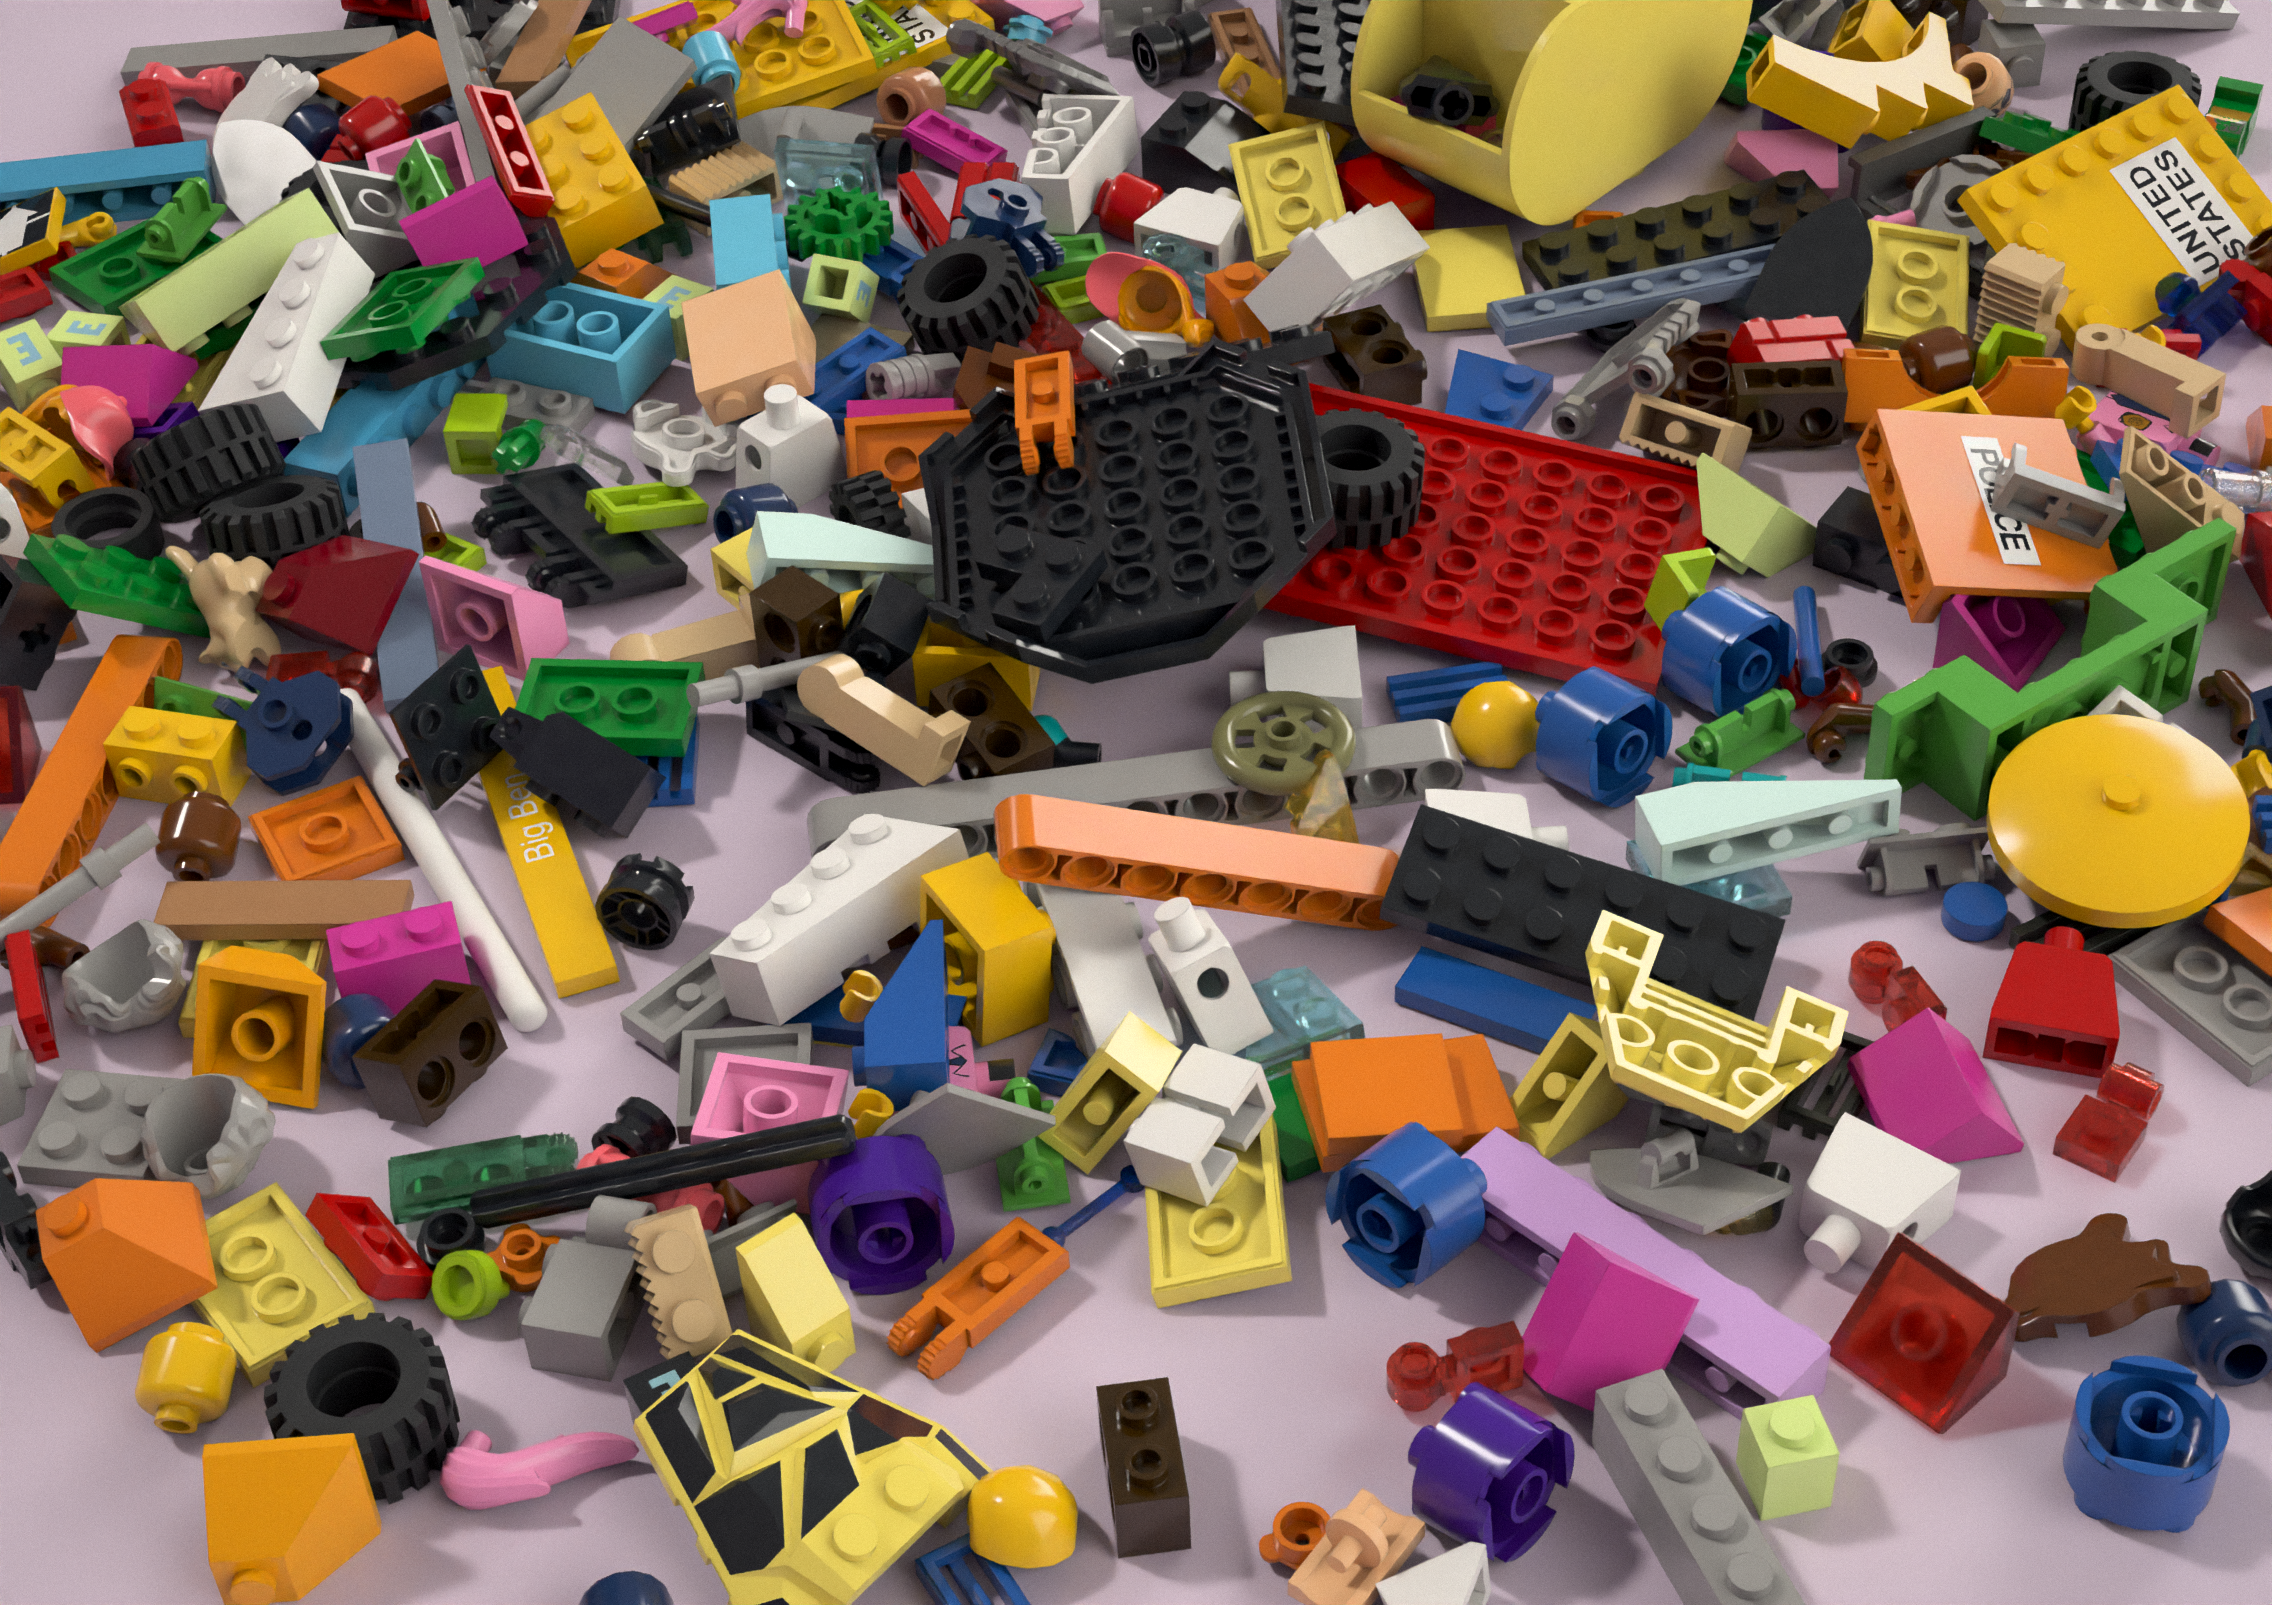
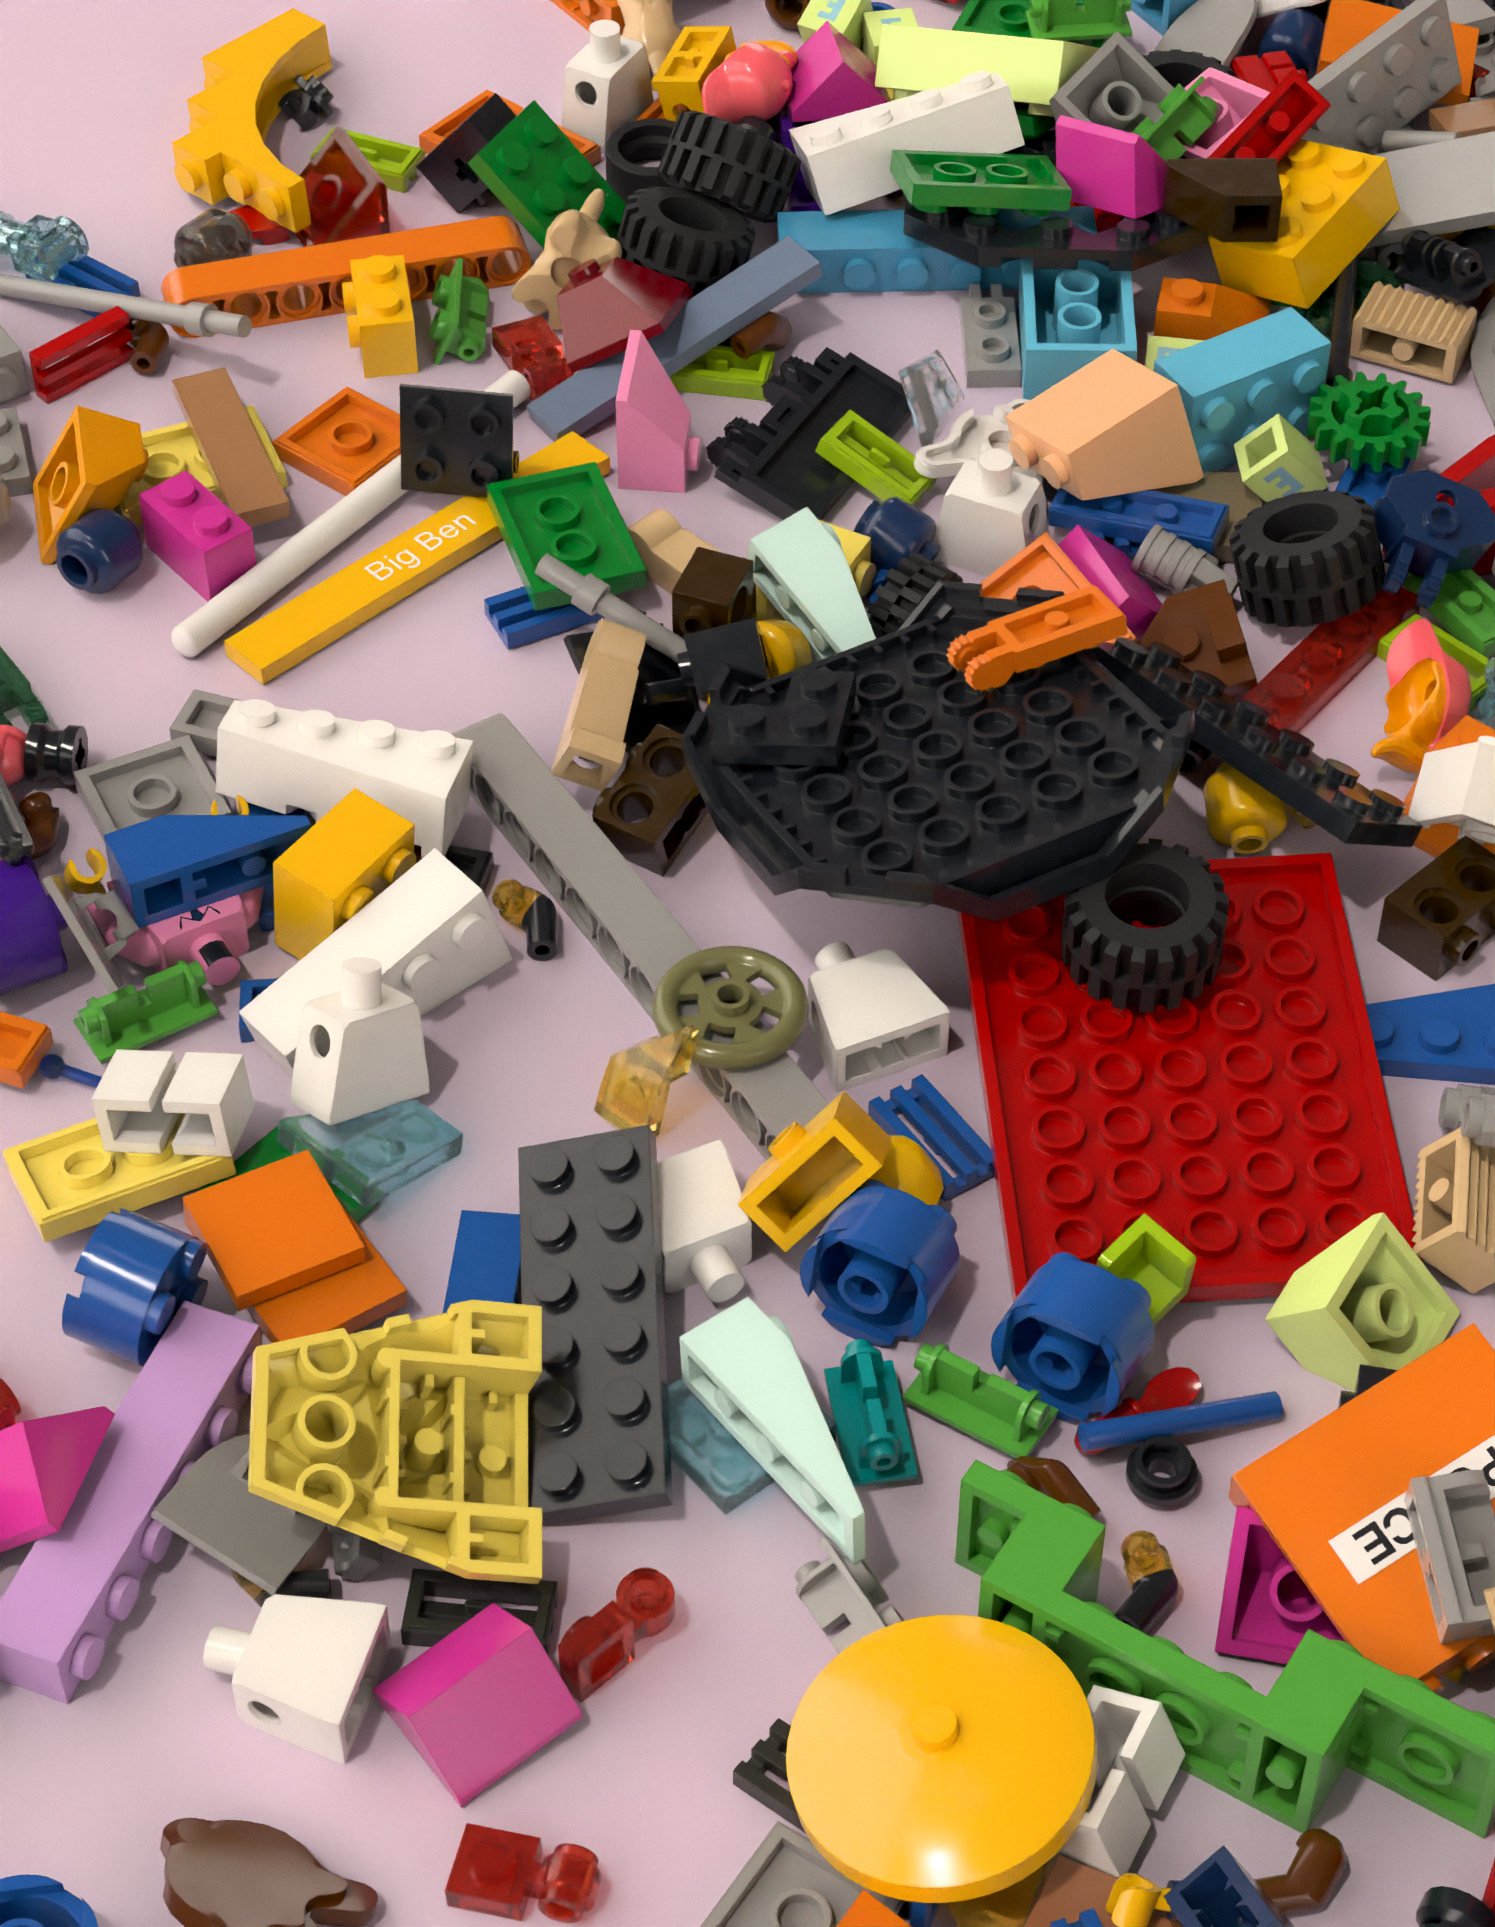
camera: 65 degrees right, 5 degrees up
(126, 979) = (108, 386): light grey hair -> none
(198, 837) = (297, 367): reddish brown head -> none
(289, 727) = (435, 348): dark blue hinge -> none
(372, 126) = (1271, 56): red head -> none
(430, 1052) = (90, 578): dark brown brick -> none
(474, 431) = (911, 307): lime panel -> none
(519, 447) = (901, 346): green axle -> none
(568, 179) = (1226, 197): none -> dark brown slope
(580, 767) = (462, 547): black hinge -> none
(644, 902) = (330, 652): black wheel -> none
(764, 1094) = (72, 805): bright pink slope -> none
(823, 165) = (1442, 389): clear light blue plate -> none
(1068, 752) = (687, 863): black arm -> none
(1110, 1092) = (203, 1020): light yellow slope -> none
(1115, 349) = (1297, 701): light grey piece -> none
(1194, 859) = (478, 970): beam -> none
(1505, 731) = (813, 1170): none -> yellow brick
(1839, 687) = (1101, 1471): clear red hinge -> none
(1926, 1335) = (129, 1761): clear red slope -> none
(1974, 911) = (792, 1674): blue tile -> none
(2056, 1007) = (659, 1778): red torso -> none

